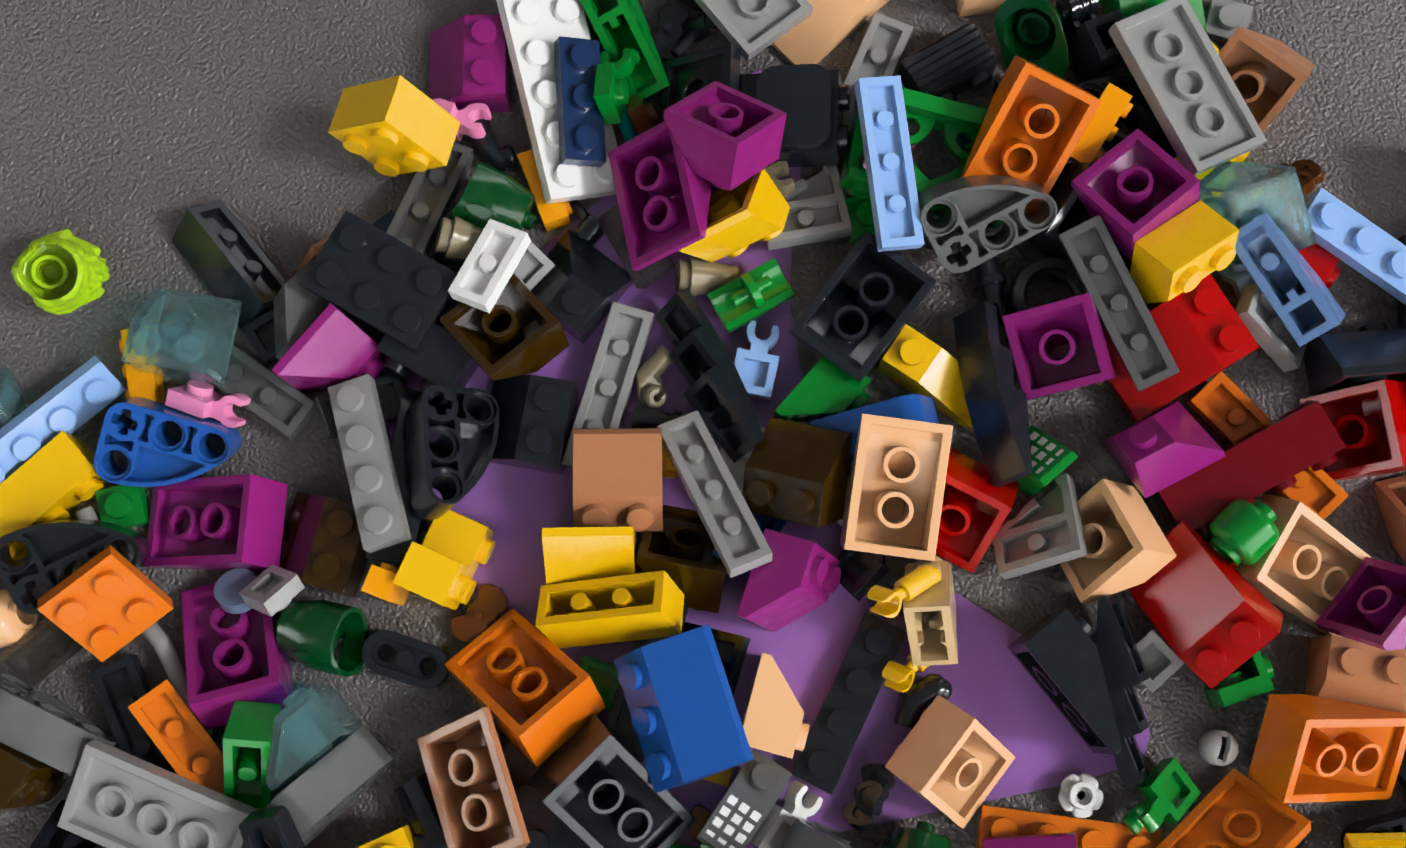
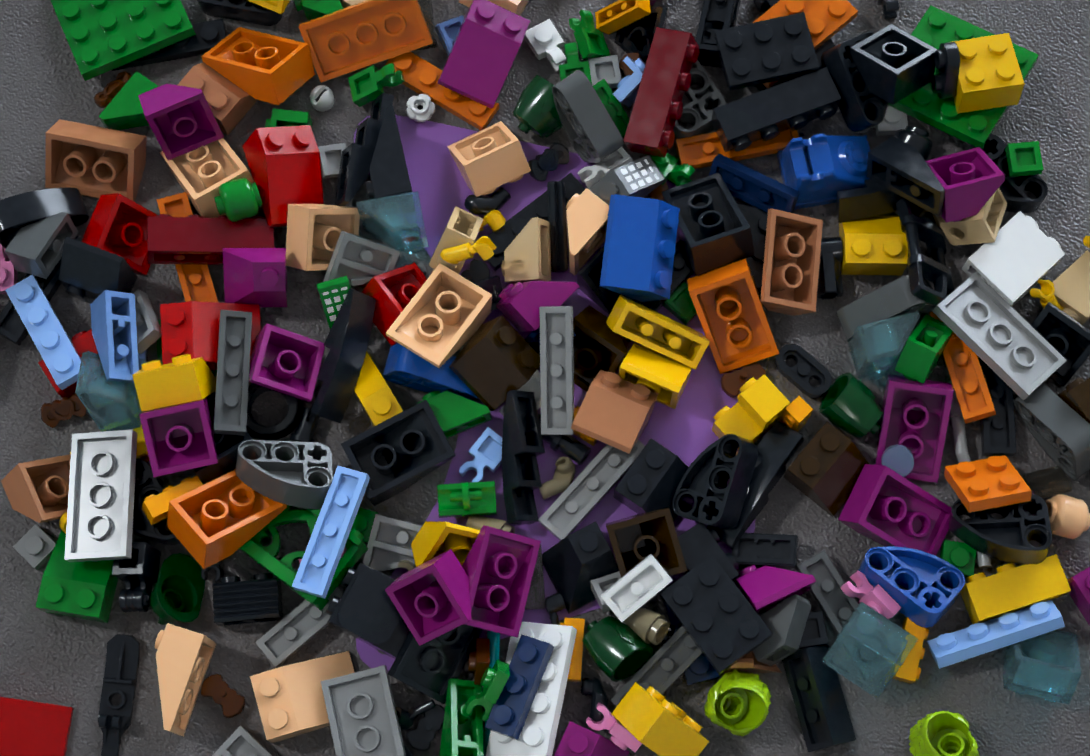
camera: 155 degrees left, 5 degrees down
(272, 590) = (873, 444): light grey plate -> none
(314, 205) = (738, 702): none -> lime hair
(369, 464) = (775, 496): light grey plate -> none
(812, 703) = (558, 229): none -> black axle
(826, 641) = (529, 254): none -> tan slope
(1020, 605) = (395, 221): none -> clear light blue slope

